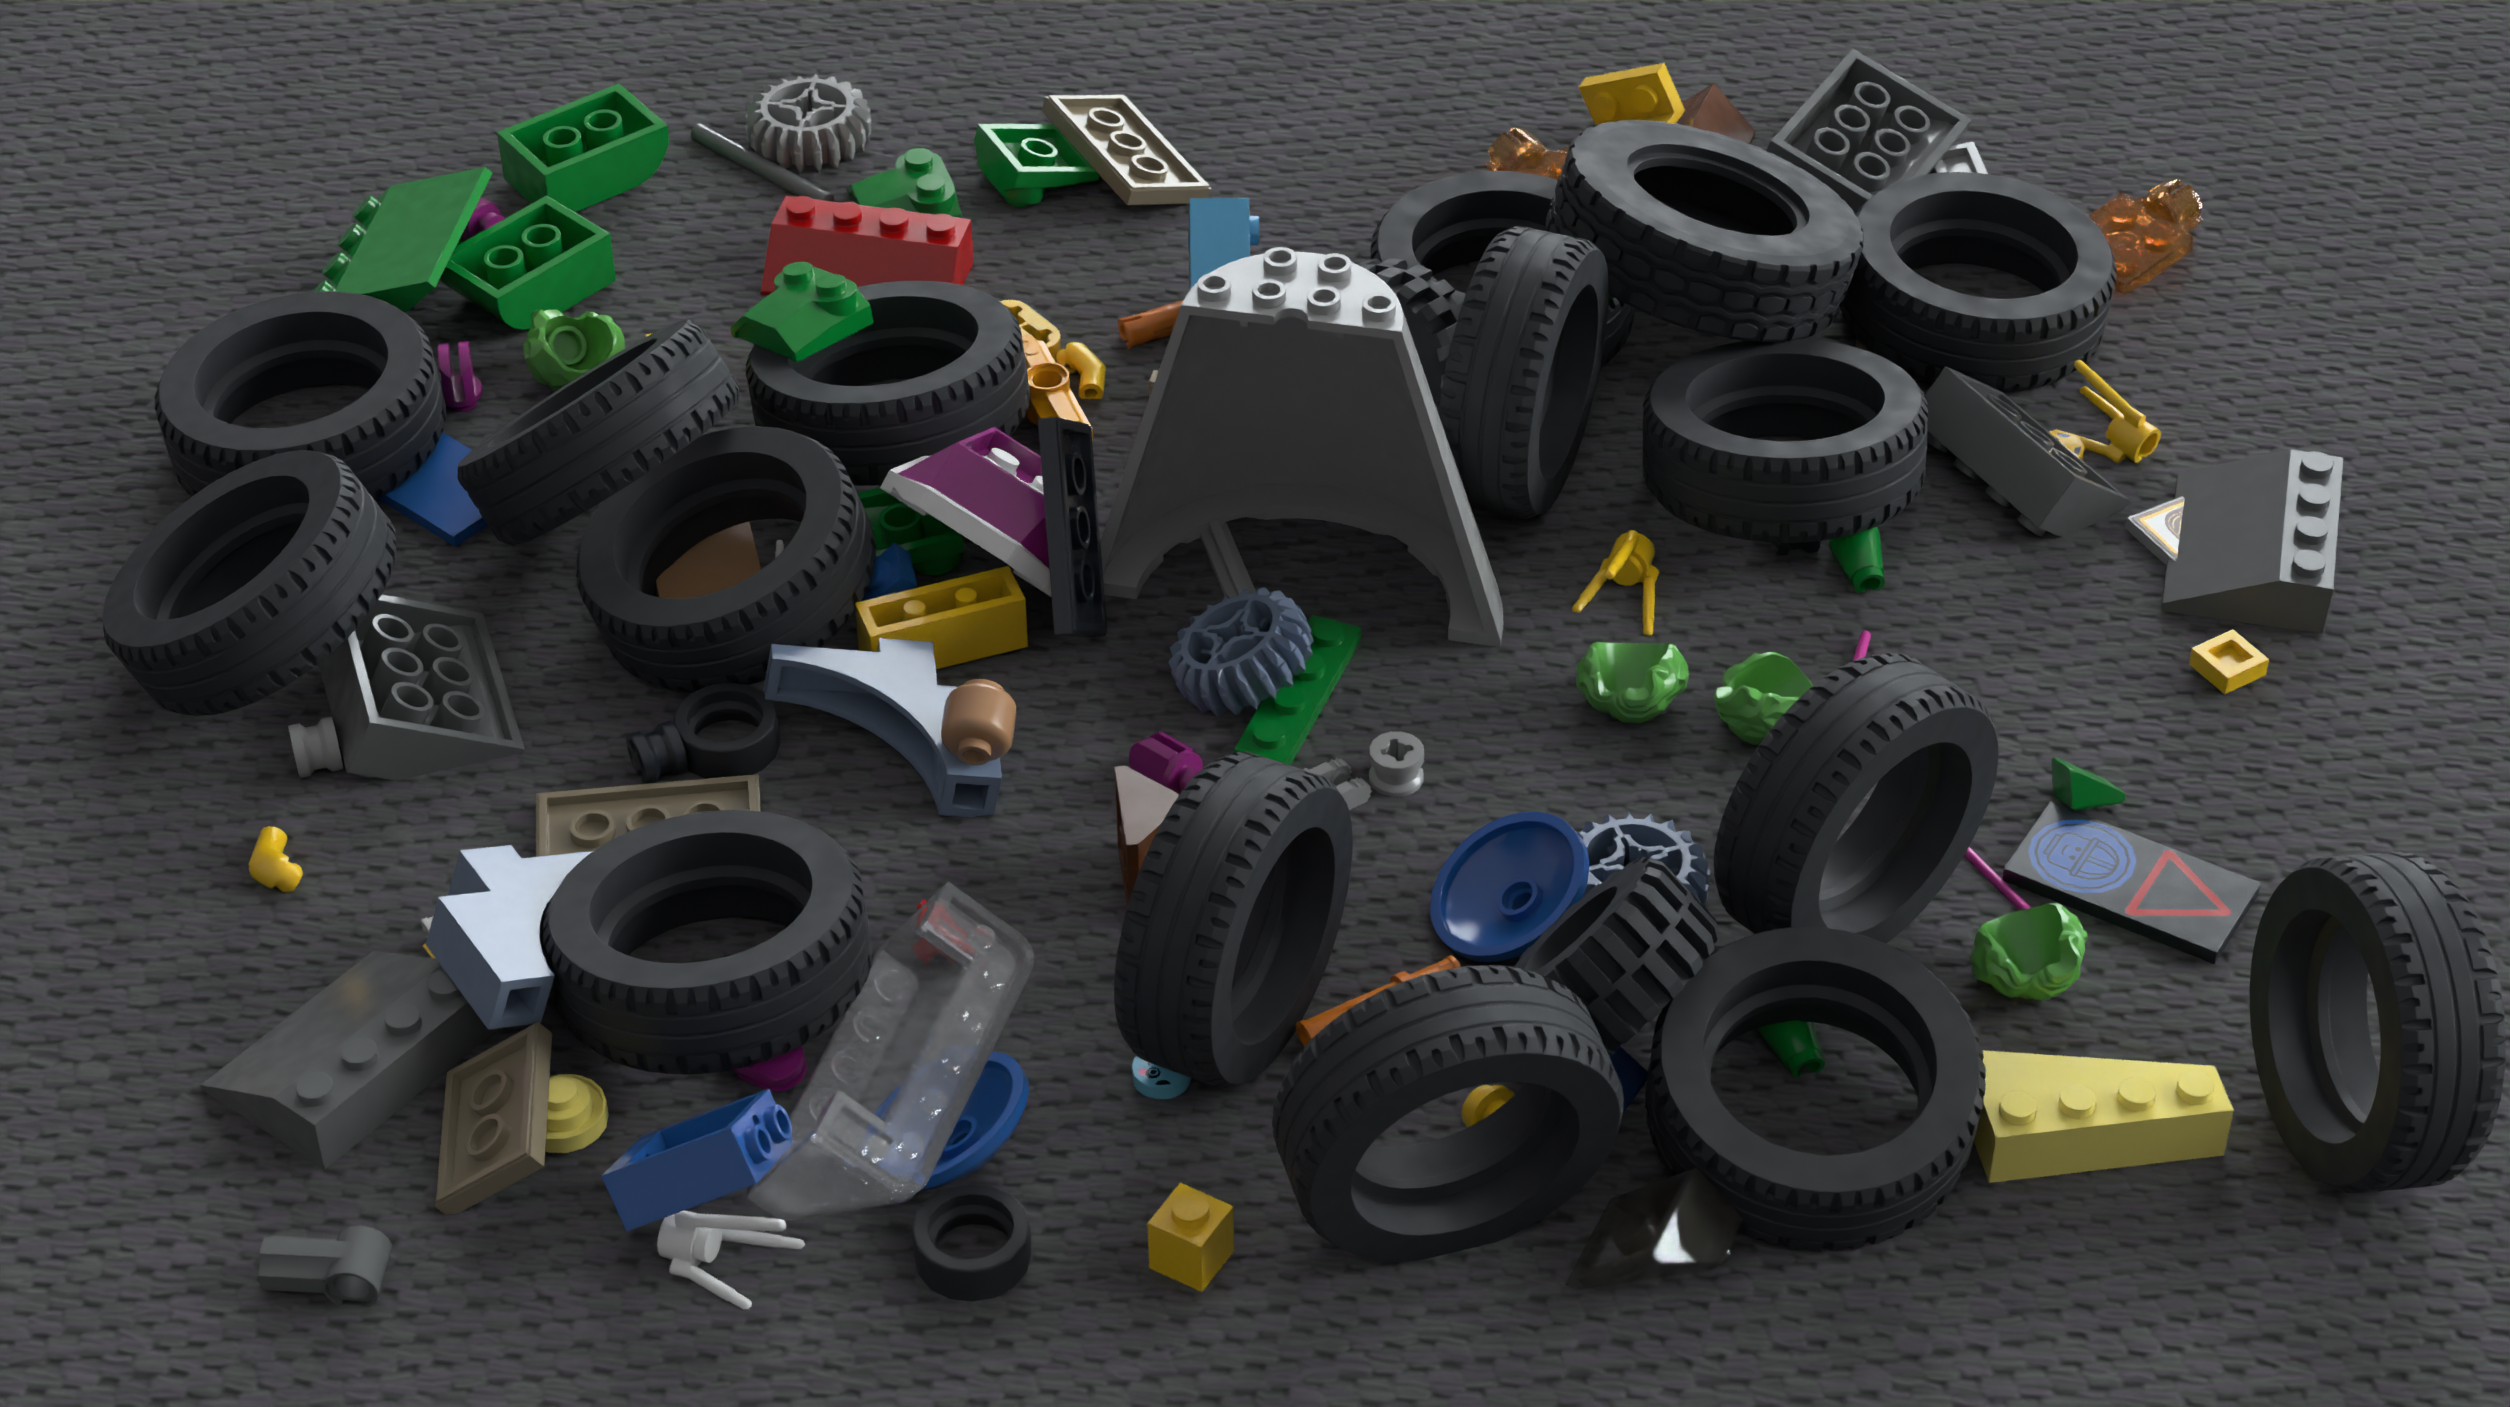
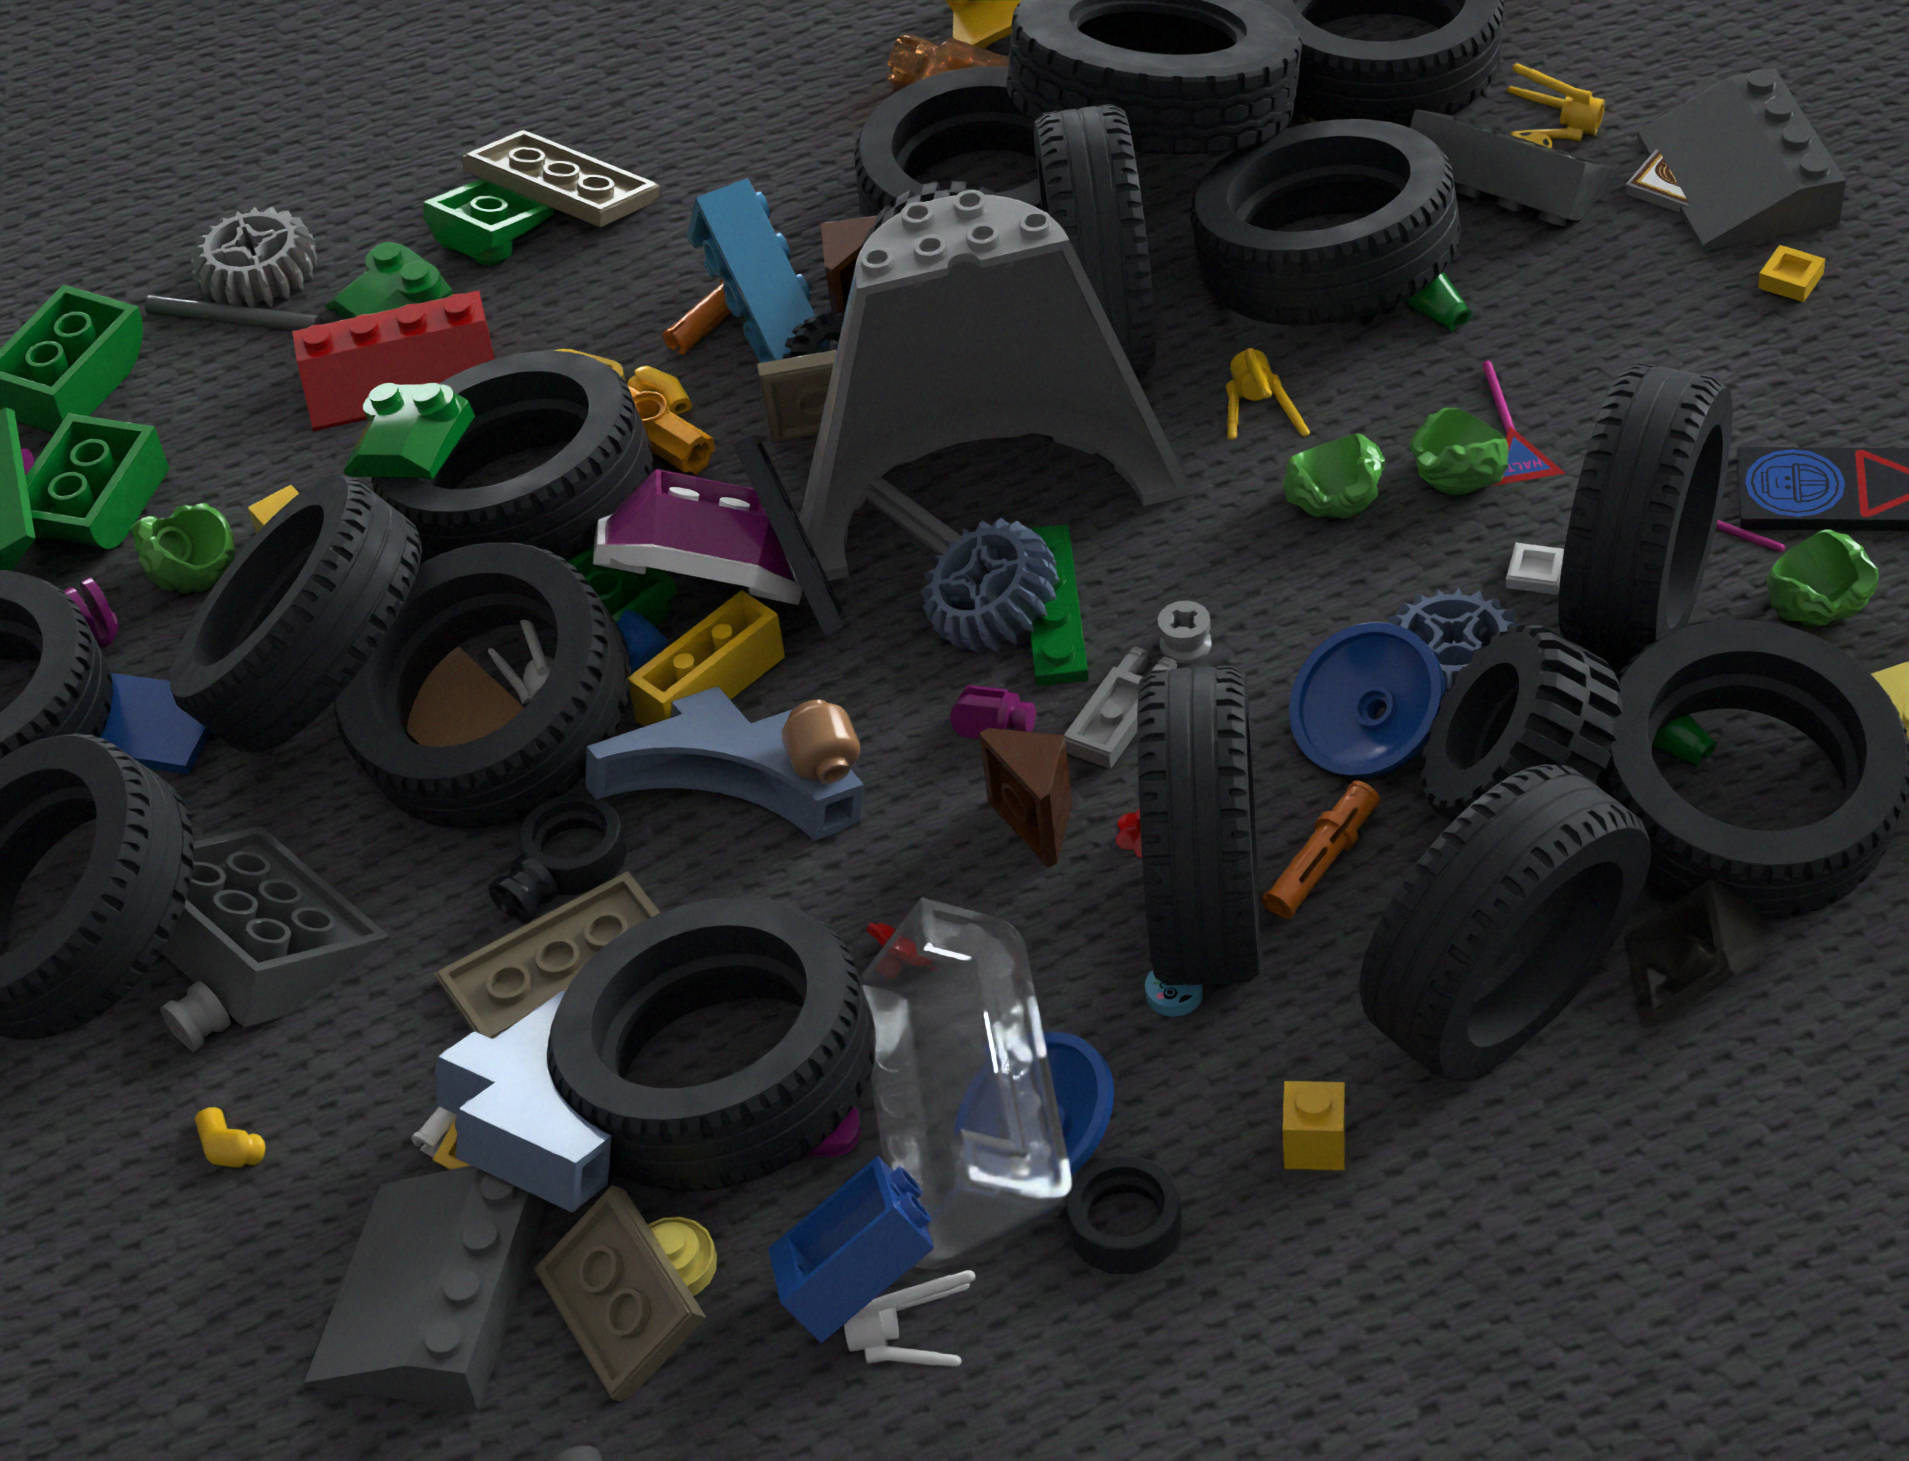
camera: 20 degrees left, 5 degrees up
(2081, 788) = (1759, 427): green slope -> none

